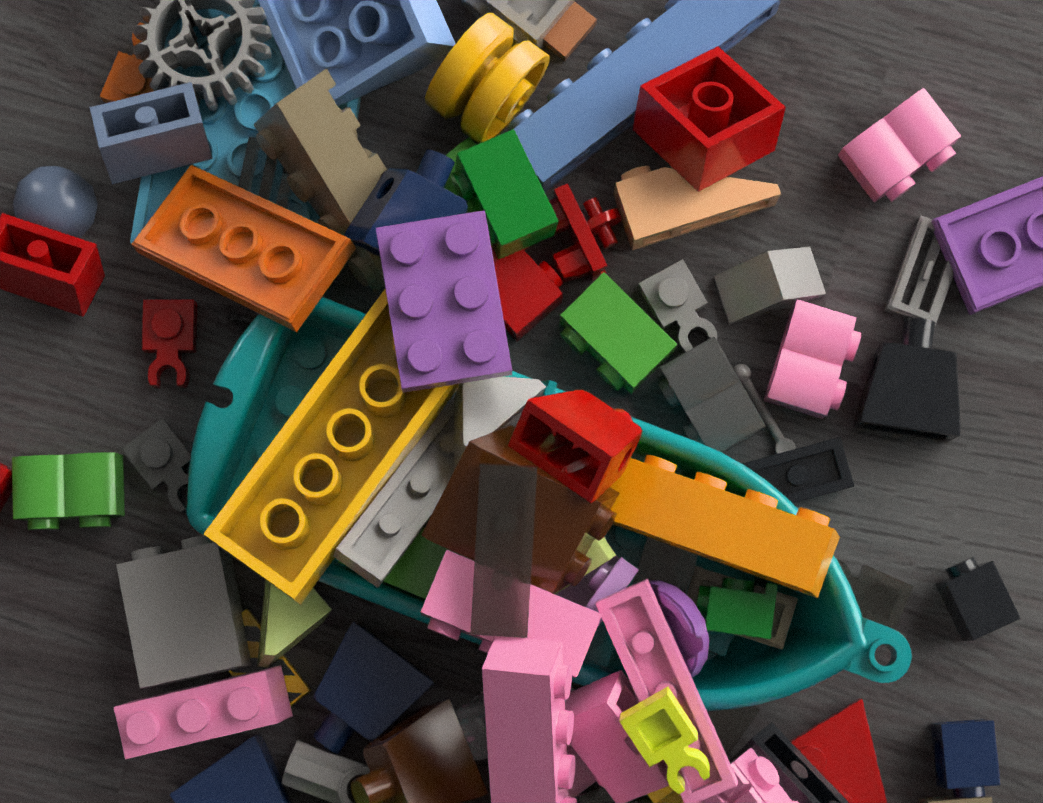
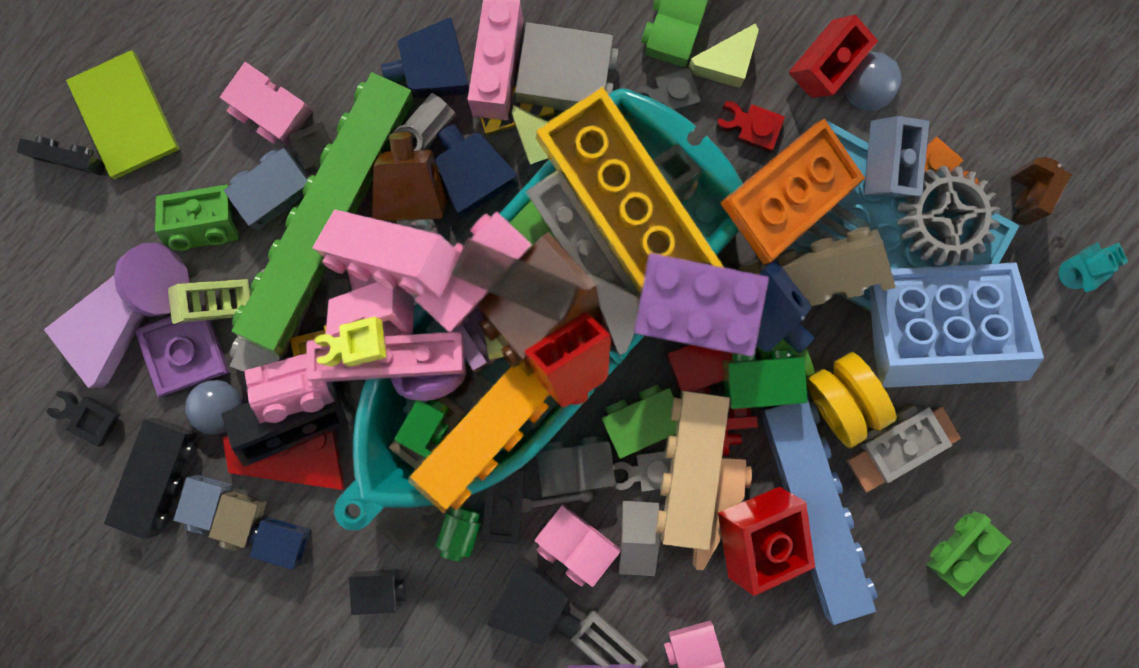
camera: 110 degrees right, 5 degrees up
(95, 399) = (728, 59): none -> yellowish green slope
(273, 401) = (679, 172): none -> clear smoke brick
(655, 242) = (693, 470): none -> tan brick
(860, 518) = (458, 533): none -> green brick

